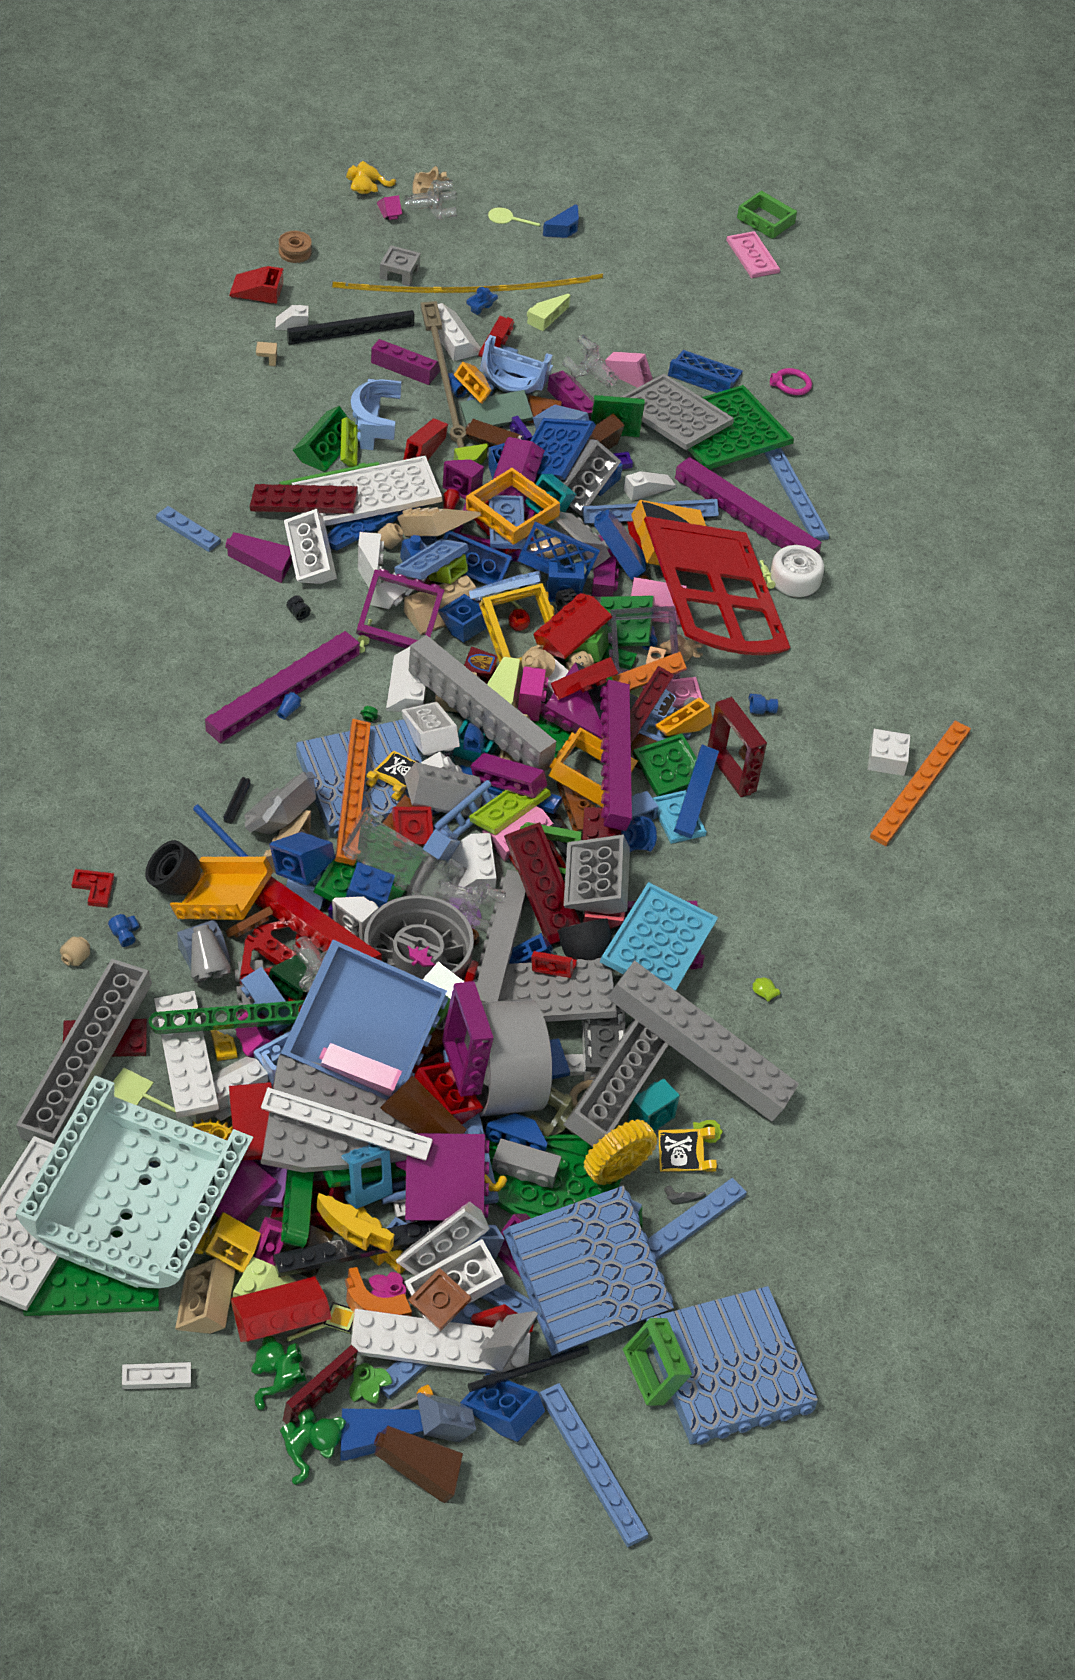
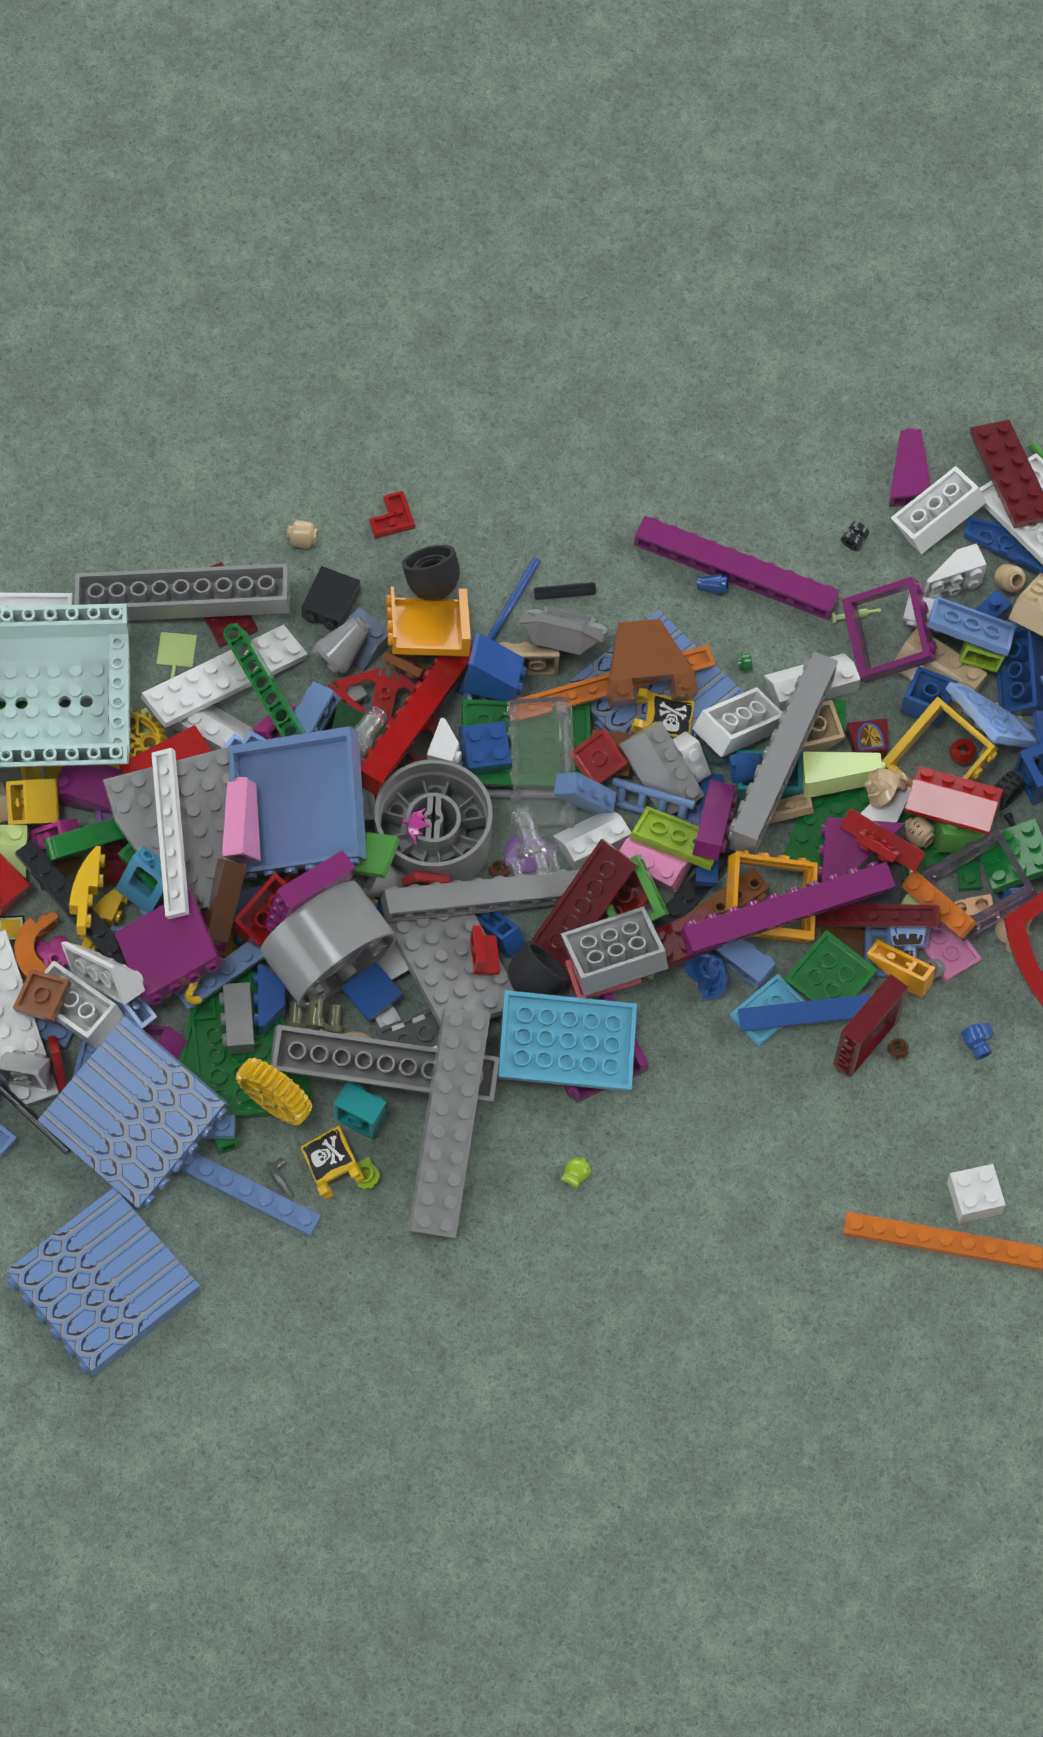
camera: 70 degrees right, 15 degrees up
(122, 926) = (353, 560): blue piece -> none
(151, 952) = (330, 598): none -> black brick
(188, 528) = (912, 387): medium blue plate -> none
(223, 1045) = (255, 710): yellow tile -> none
(347, 755) = (647, 653): none -> dark orange wedge
(533, 692) = (839, 796): dark pink brick -> none
(660, 1332) = (66, 1210): bright green window -> none

